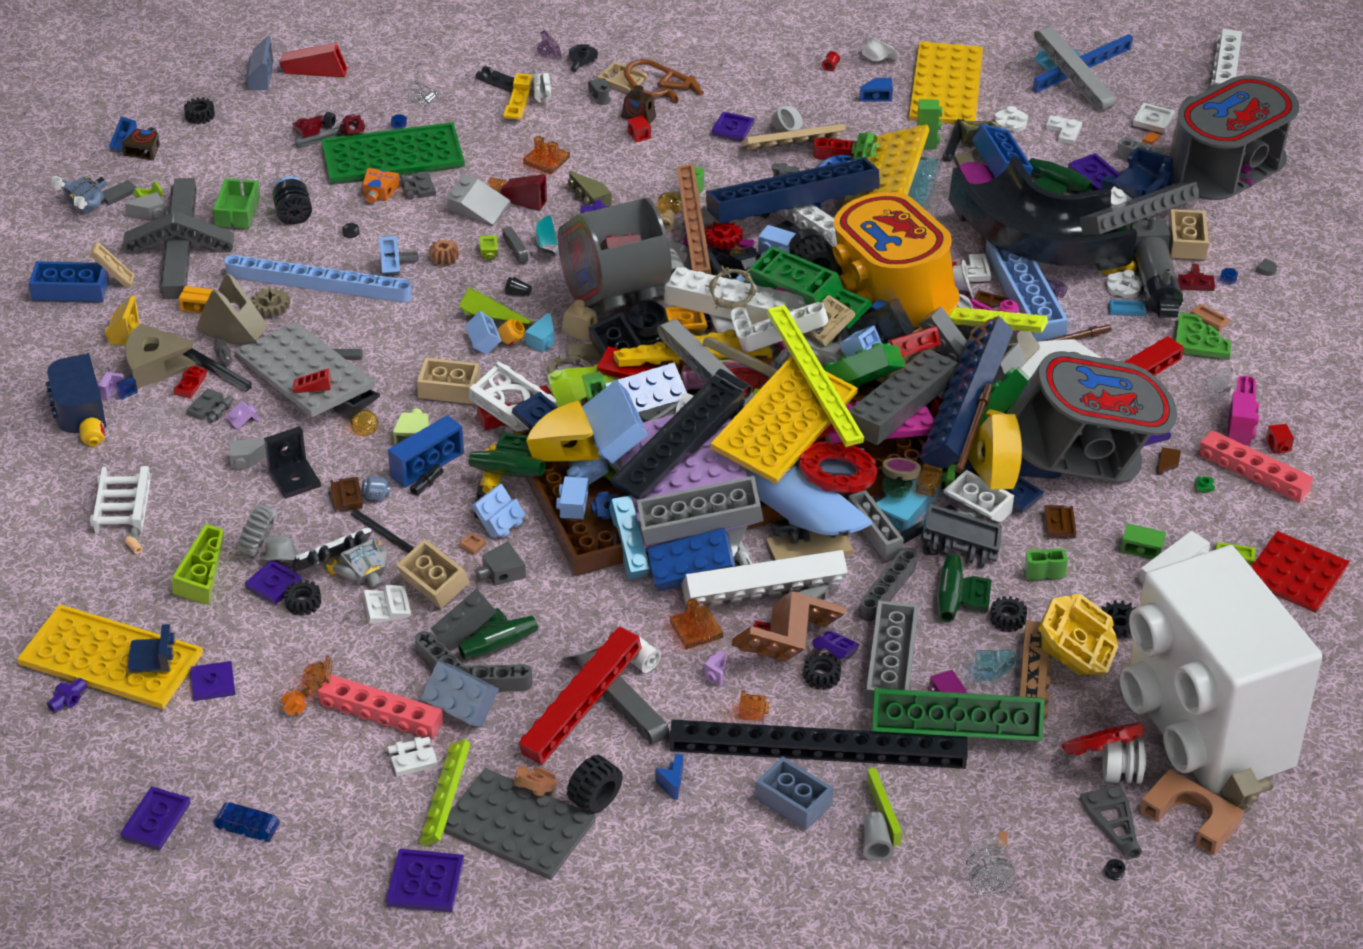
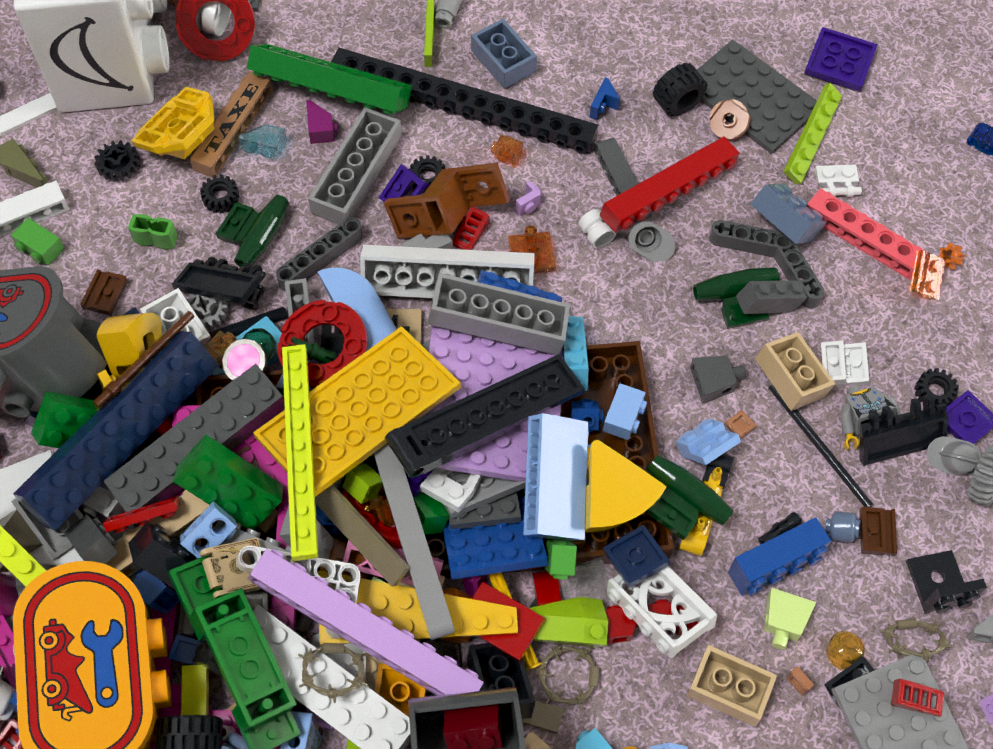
camera: 165 degrees left, 20 degrees up
(326, 414) = (912, 623): none -> dark tan piece
(397, 397) = (800, 681): none -> nougat tile
(719, 307) = (360, 626): none -> lavender brick
(843, 459) = (314, 351): none -> dark green pin

